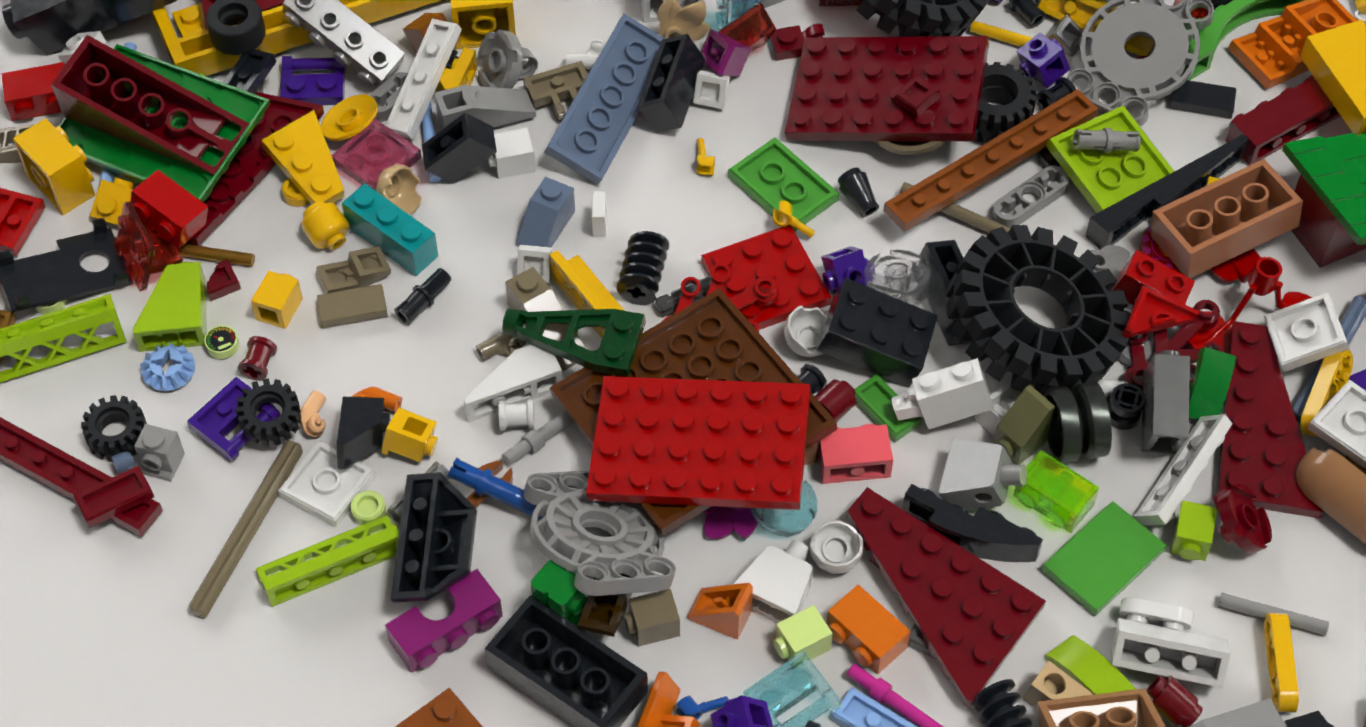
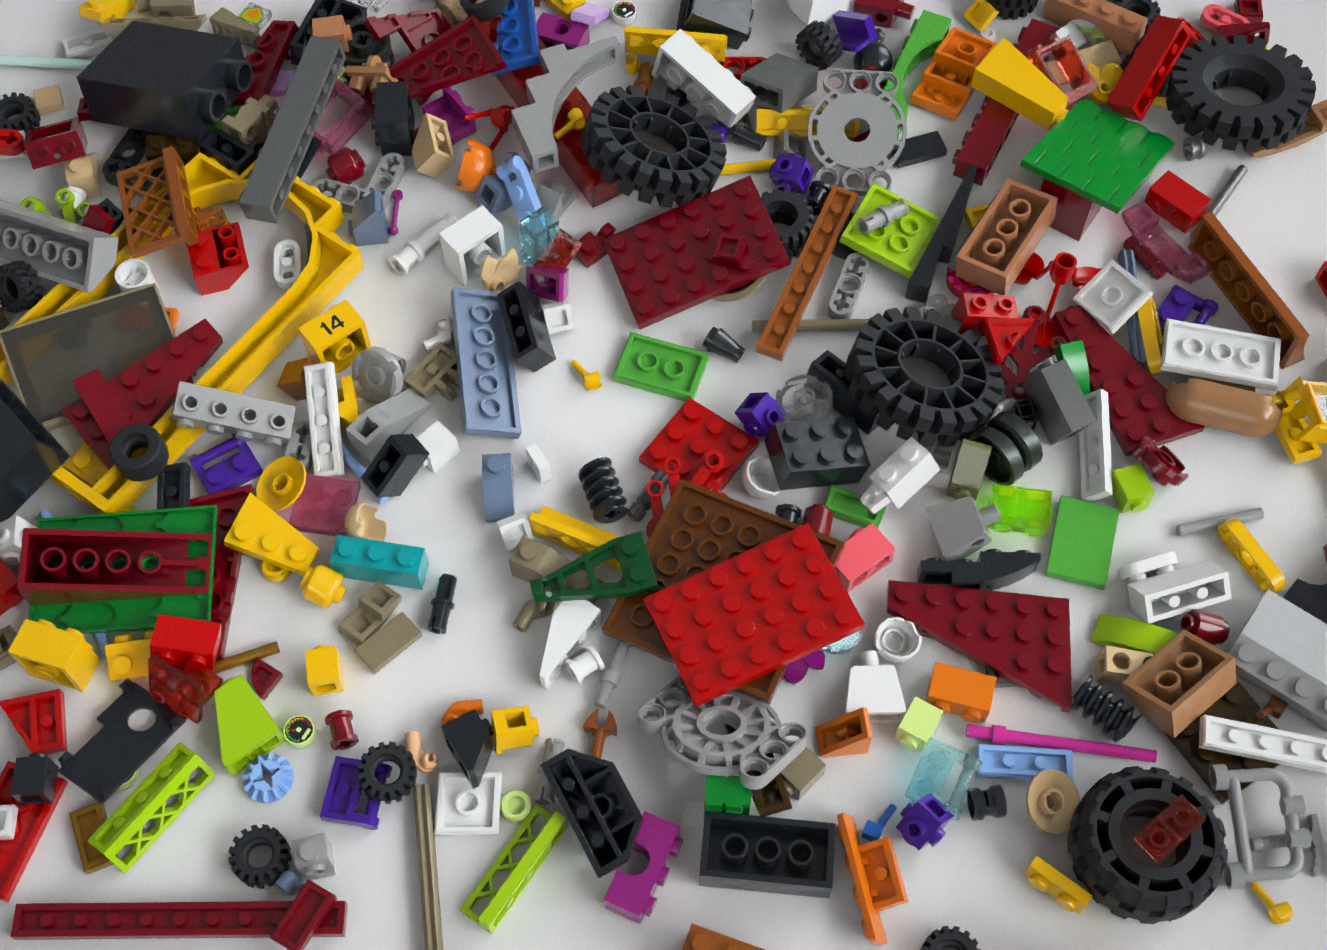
camera: 30 degrees left, 5 degrees up
(485, 483) = (607, 735): blue pin -> none
(784, 218) = (684, 394): yellow hand -> none

